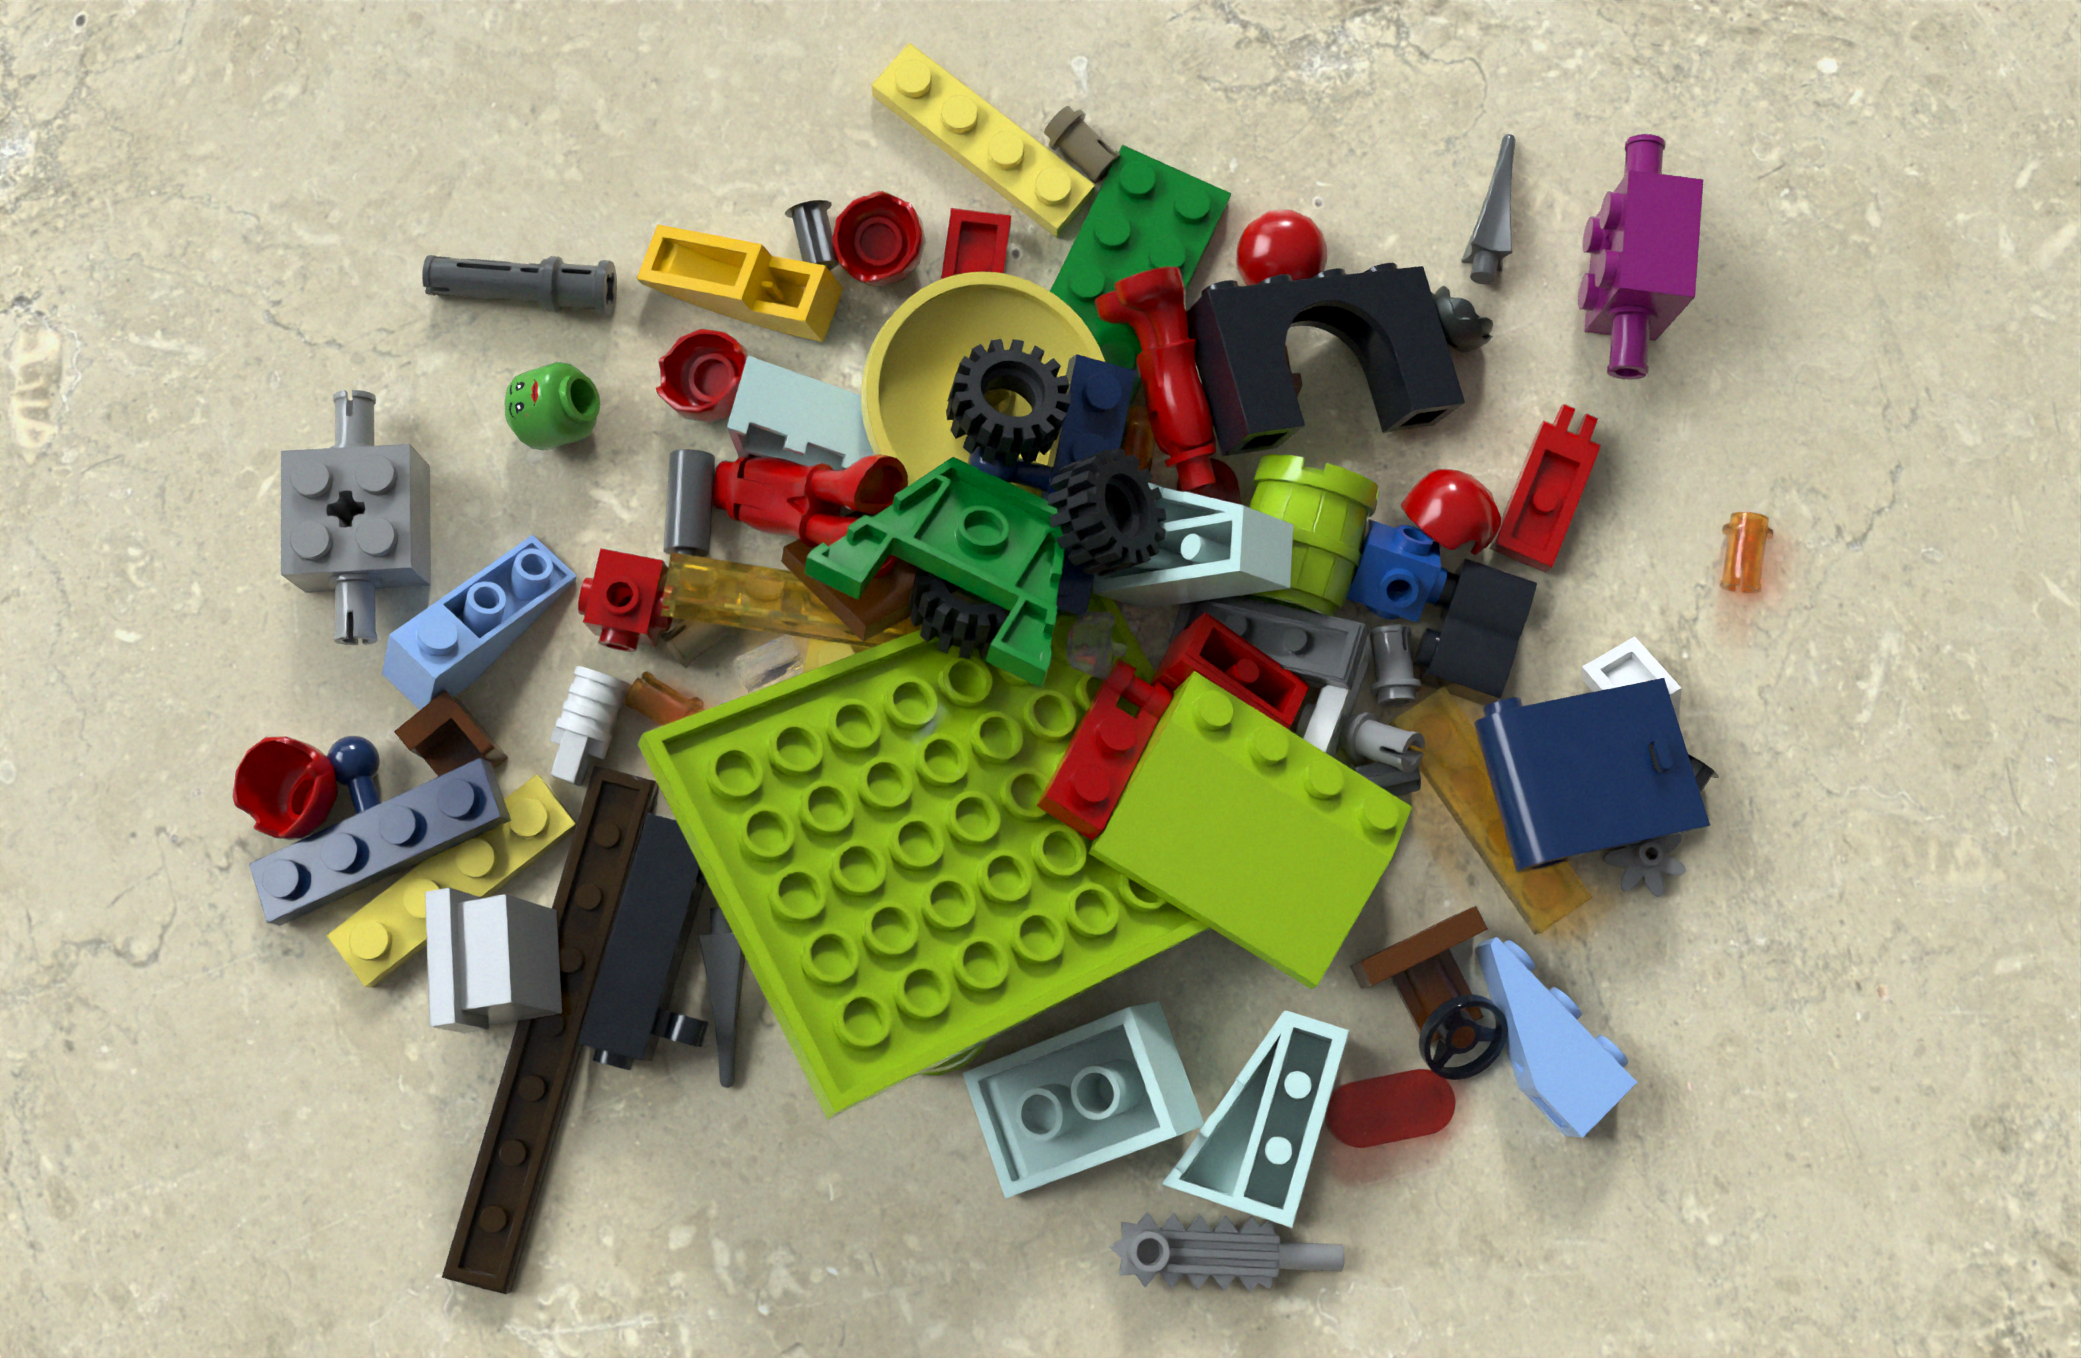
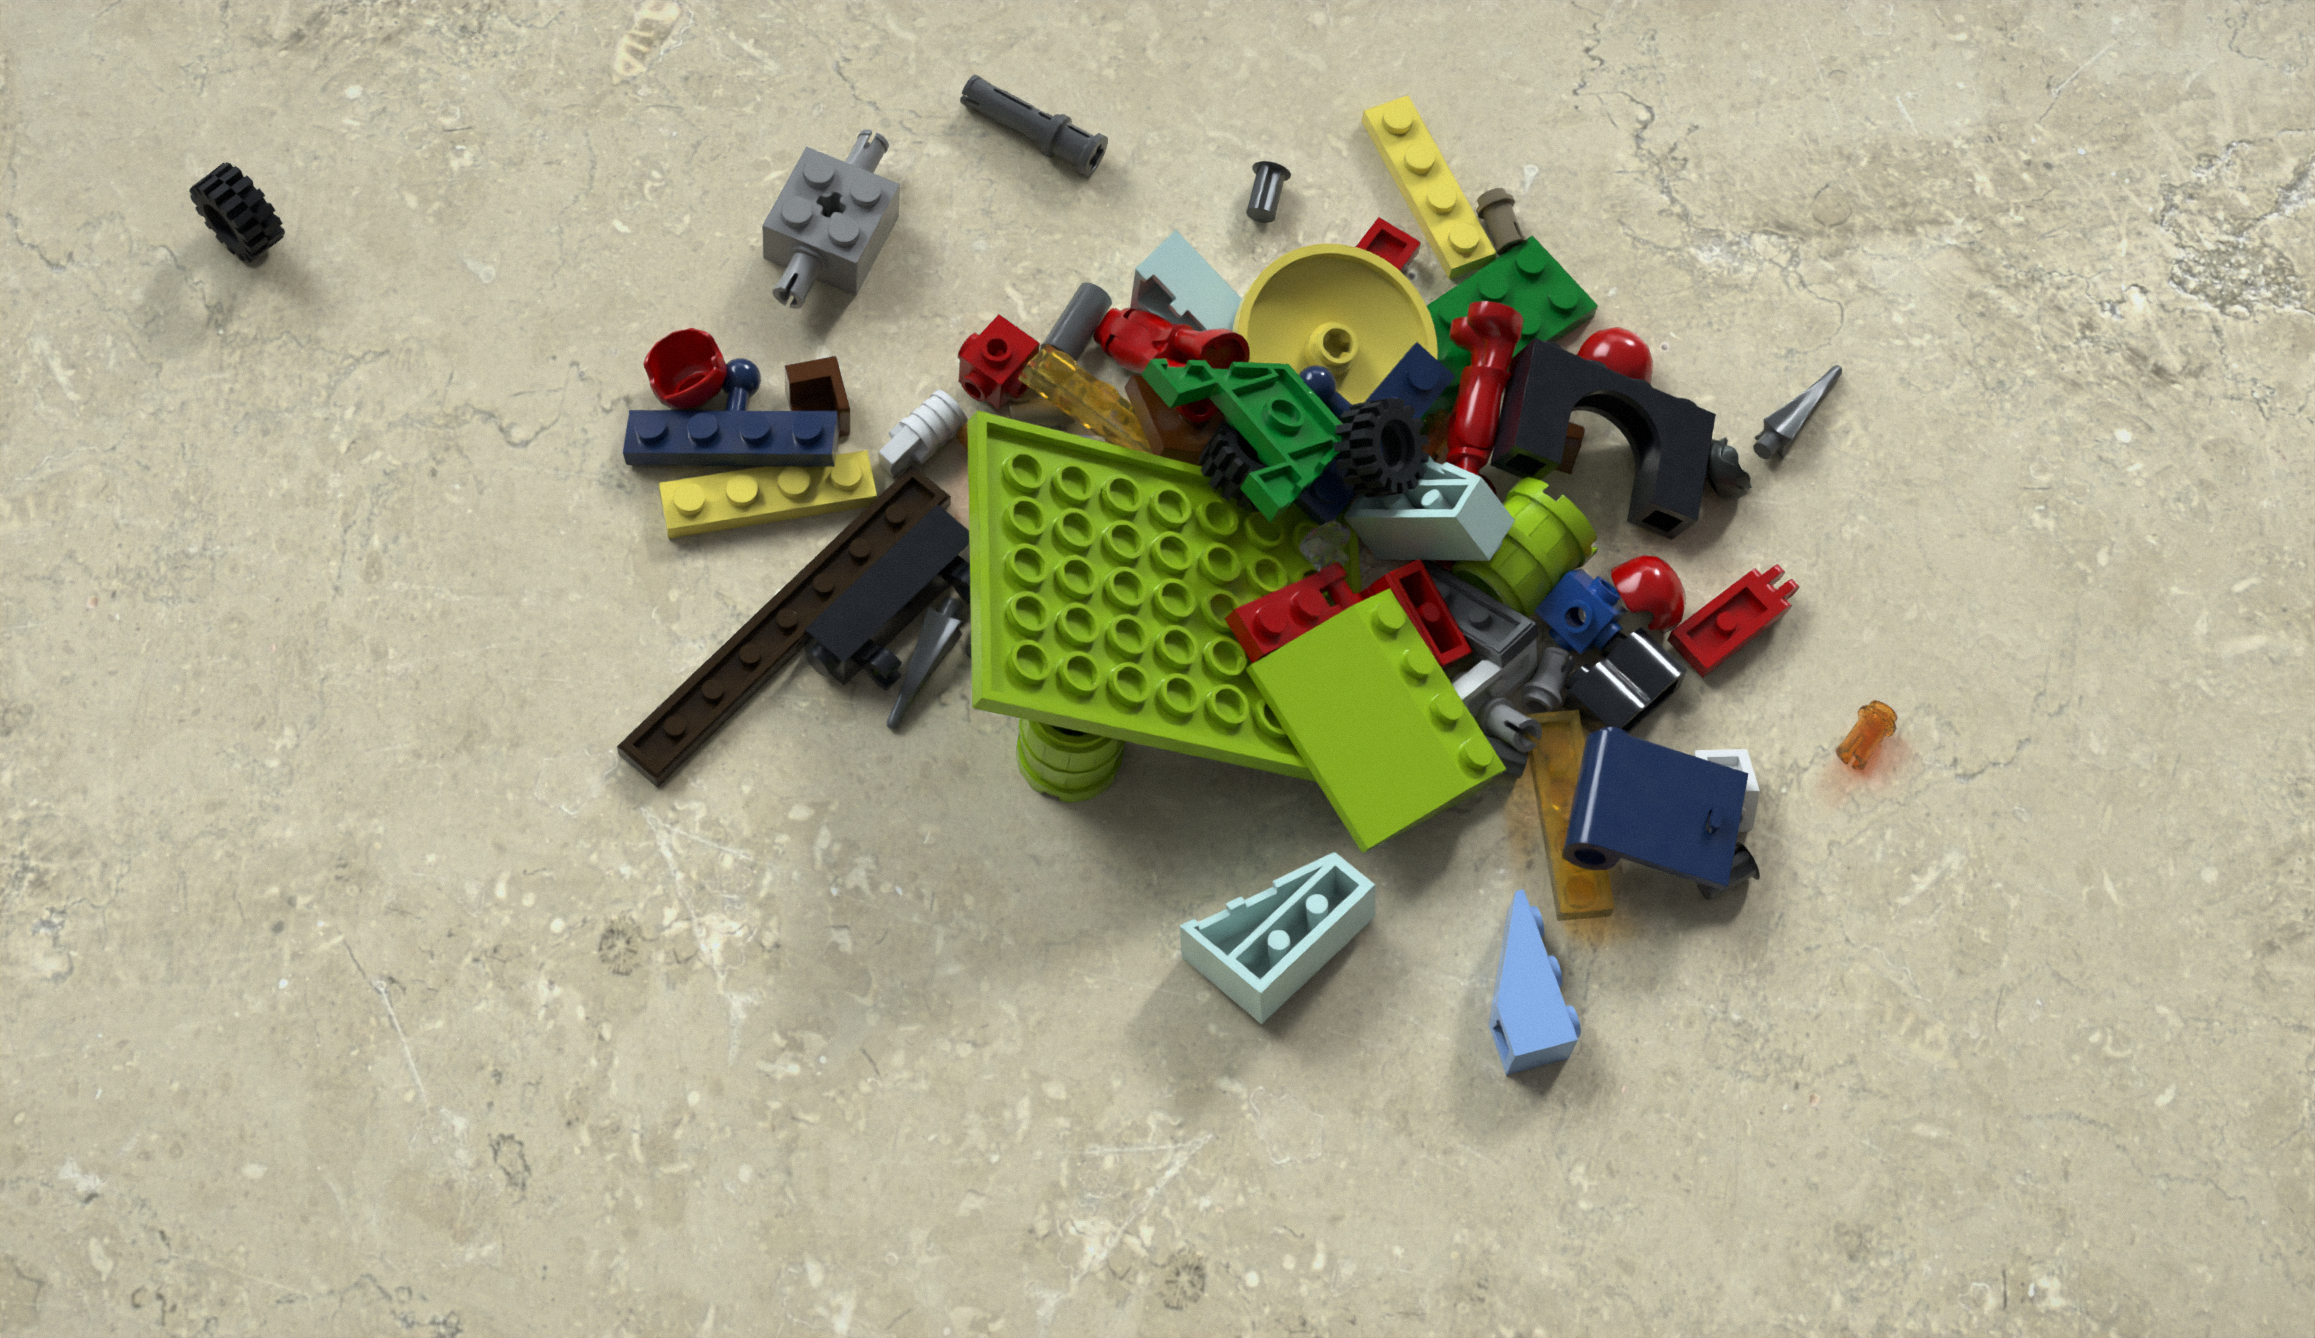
camera: 25 degrees right, 15 degrees down
(474, 623) = (876, 328): light blue slope -> none
(490, 960) = (773, 544): light grey plate -> none
(551, 406) = (1012, 212): bright green head -> none
(702, 375) = (1129, 241): red hair -> none
(742, 281) = (1196, 197): yellow slope -> none
(879, 239) = (1313, 212): red hair -> none
(1017, 373) = (1335, 360): black tyre -> none
(1083, 1098) = (1152, 855): light aqua slope -> none
(1224, 1252) = (1197, 1014): light grey piece -> none
(1390, 1108) = (1379, 984): clear red tile -> none
(1438, 994) = (1458, 912): reddish brown piece -> none
(1641, 256) = (1886, 483): magenta brick -> none
(1650, 869) = (1674, 917): light grey plant -> none

